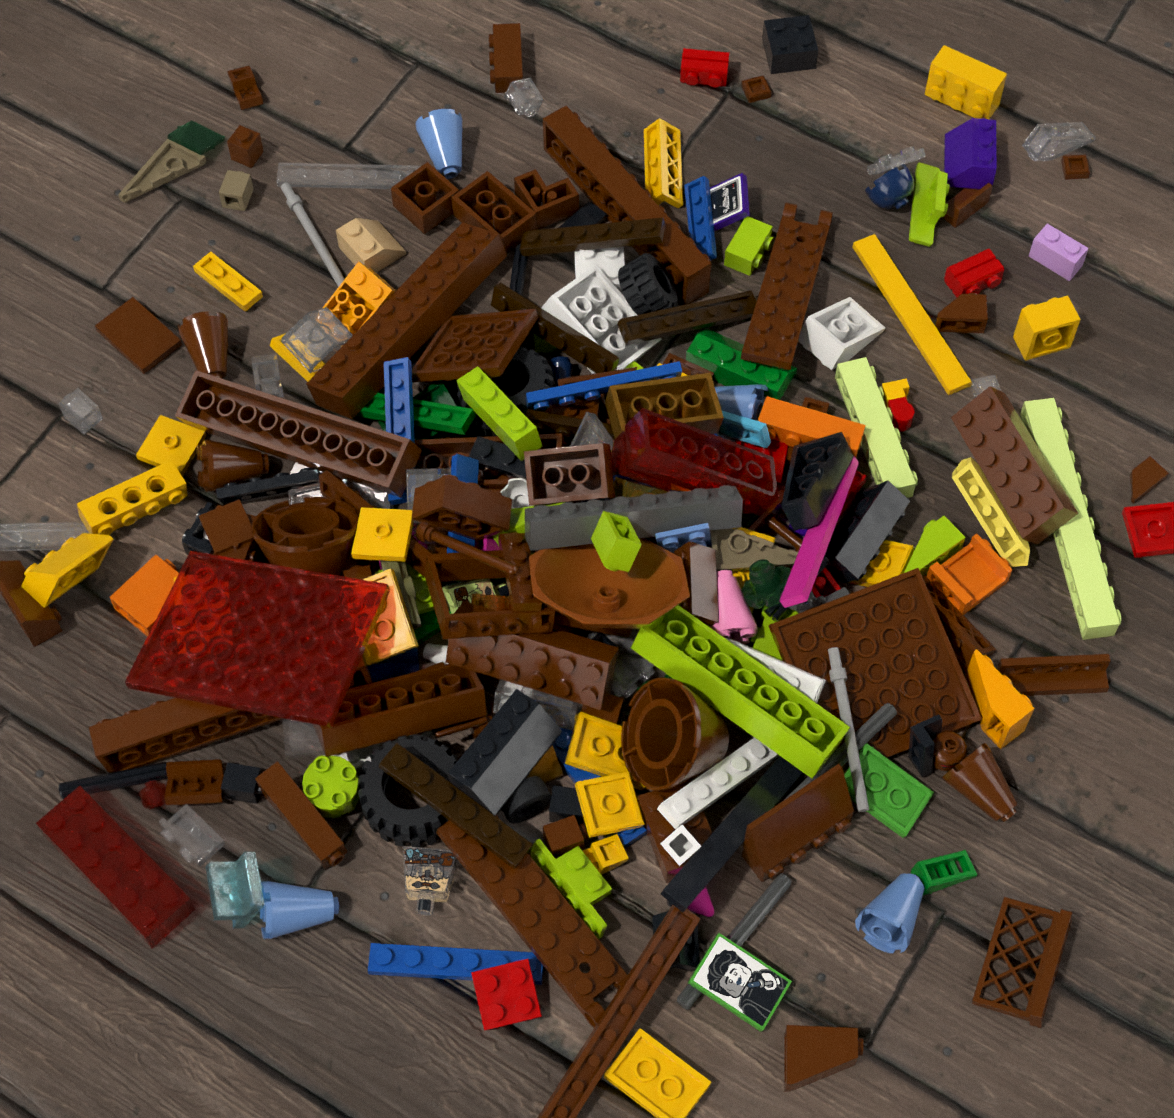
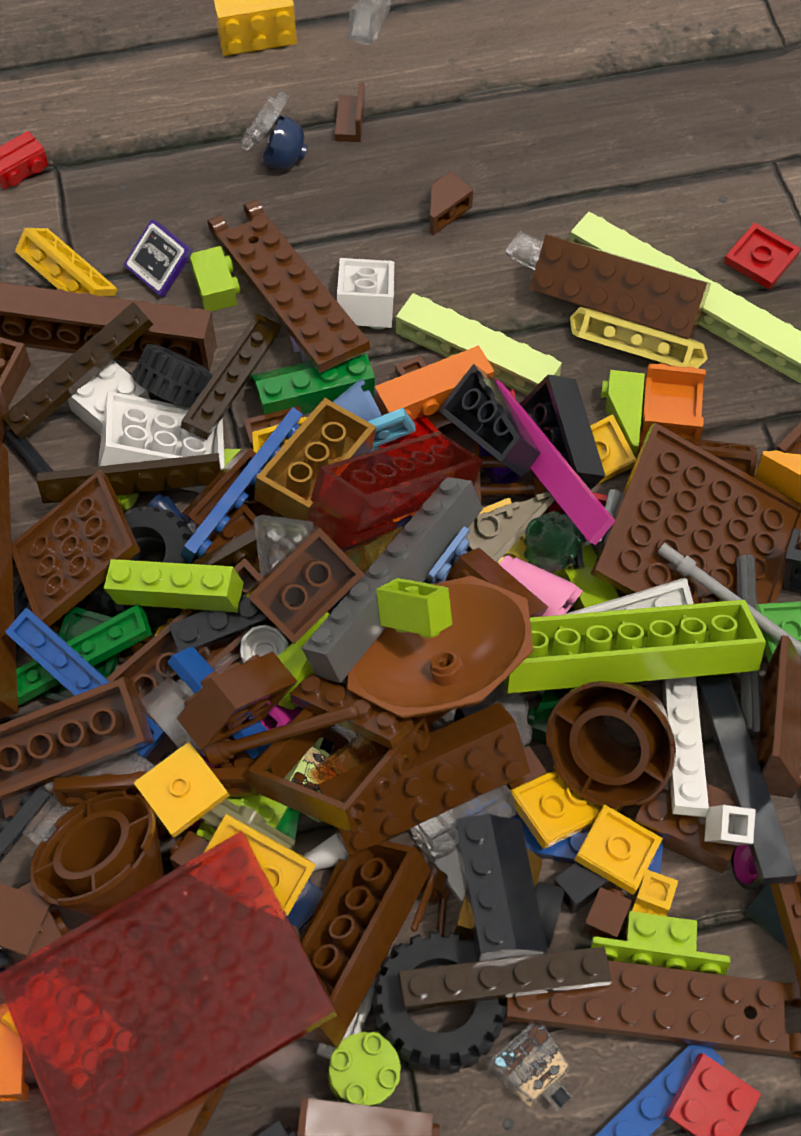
camera: 45 degrees left, 0 degrees up
(587, 215) = (42, 363): black tile -> none
(700, 216) = (140, 281): blue tile -> none
(756, 89) = (78, 148): reddish brown tile -> none
(789, 44) = (71, 90): black brick -> none
(896, 399) = (464, 305): leg -> none
(912, 315) = (402, 234): yellow tile -> none
(927, 203) = (325, 135): lime bracket -> none
(971, 154) = (318, 72): dark purple slope -> none
(974, 274) = (420, 165): red brick -> none
(1046, 327) = (523, 161): yellow brick -> none
(1058, 252) = (465, 99): lavender brick -> none
(1075, 167) = (402, 27): reddish brown tile -> none
(1145, 478) = (710, 222): reddish brown tile -> none

